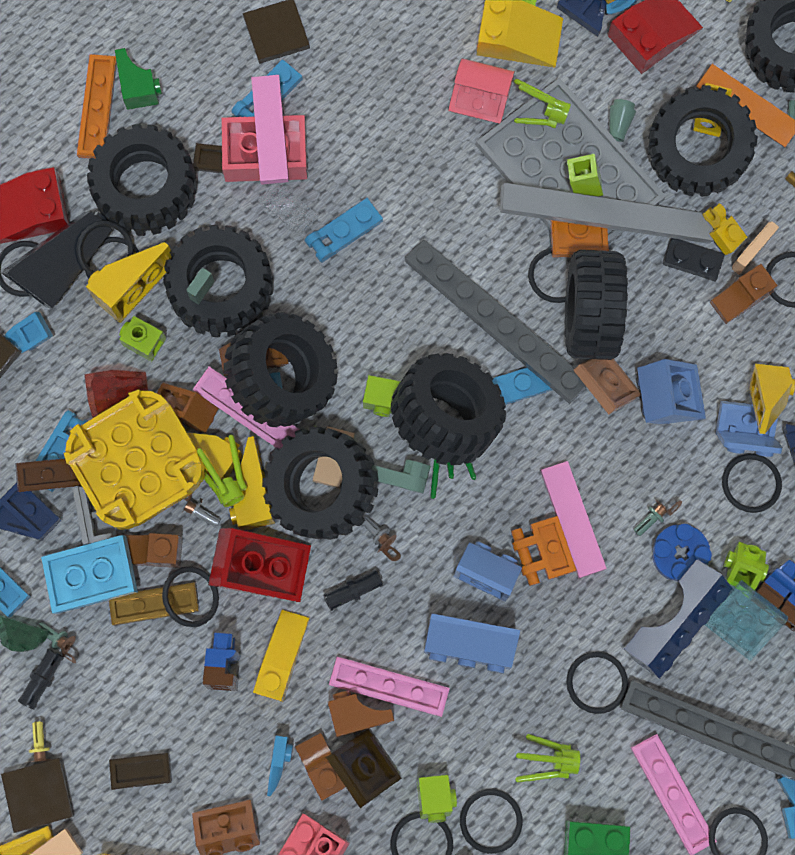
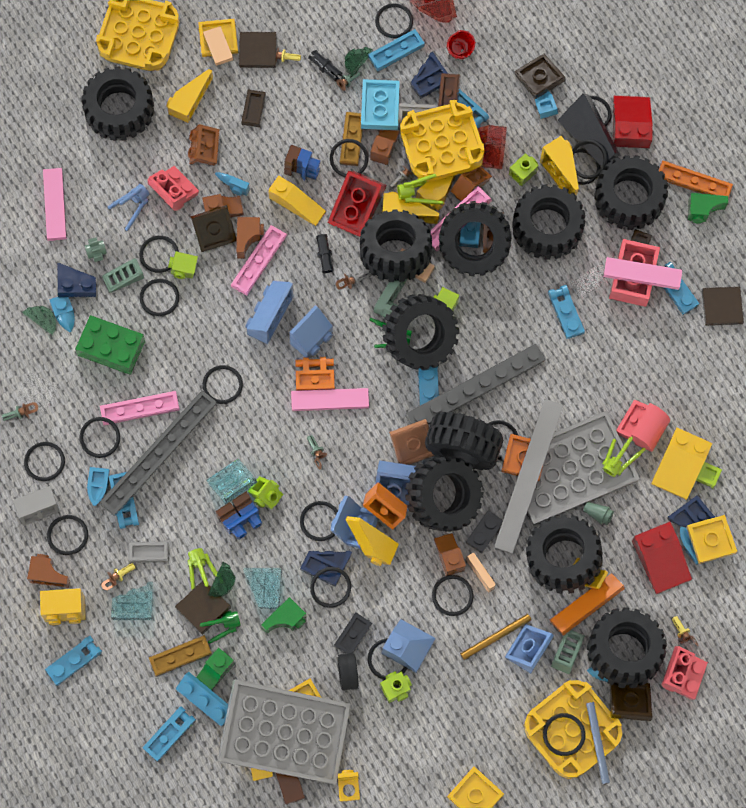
camera: 105 degrees right, 5 degrees down
(200, 286) = (541, 200): sand green tile -> none
(564, 760) = (180, 347): lime plant -> none
(585, 175) = (557, 466): lime brick -> none
(659, 646) = (256, 457): arch -> none
(681, 536) = (278, 454): blue plate -> none
(686, 293) = (466, 498): none -> black tyre
(713, 393) = (385, 505): none -> orange brick
(726, 231) = (496, 556): yellow plate -> none

